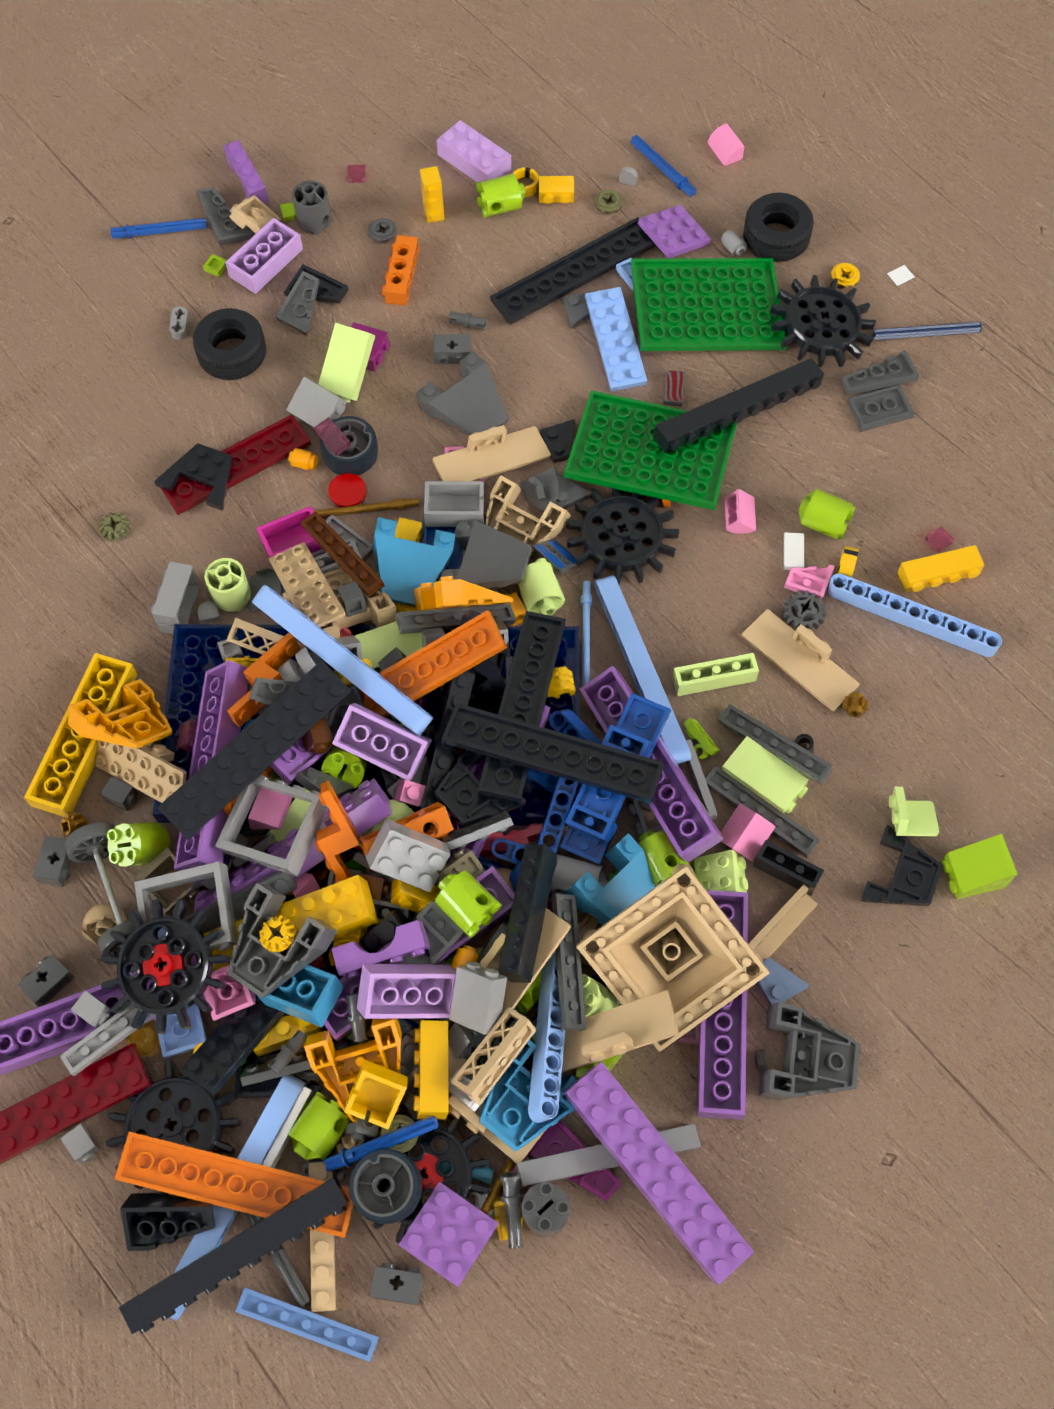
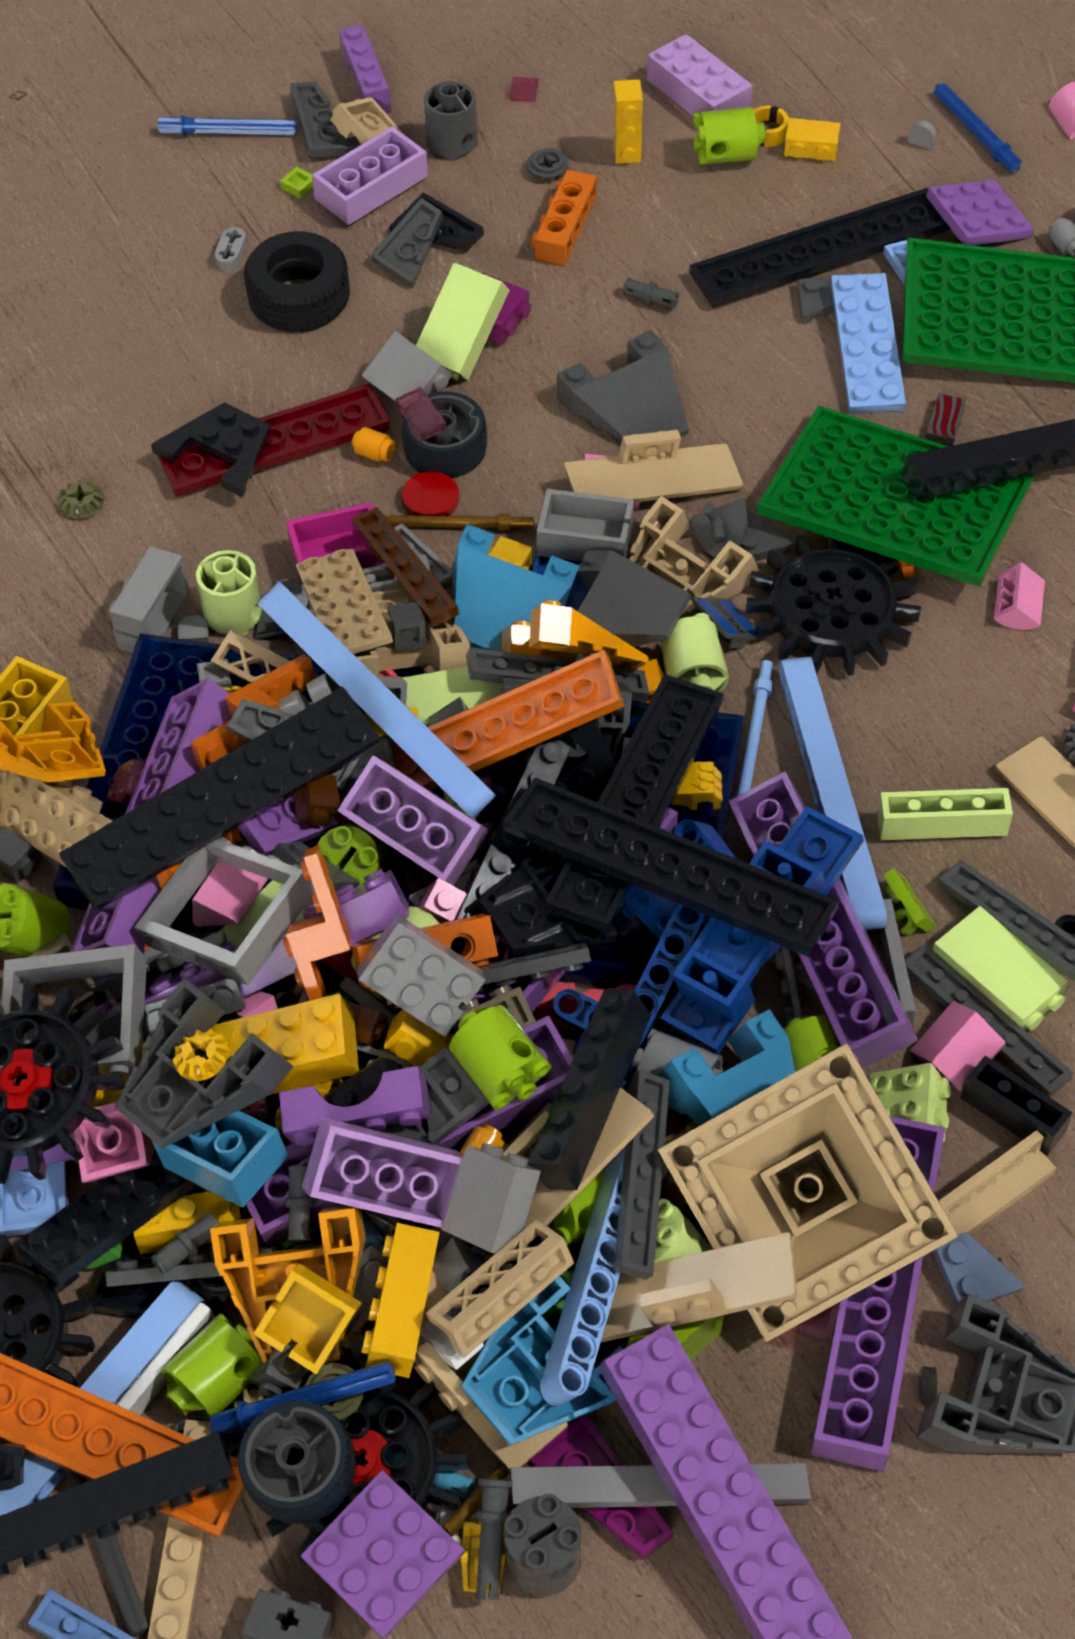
camera: 10 degrees right, 10 degrees down
(288, 211) = (416, 126): lime tile -> none
(451, 348) = (617, 324): dark grey brick -> none
(559, 440) = (758, 466): black wing -> none
(605, 196) = (884, 158): olive gear -> none

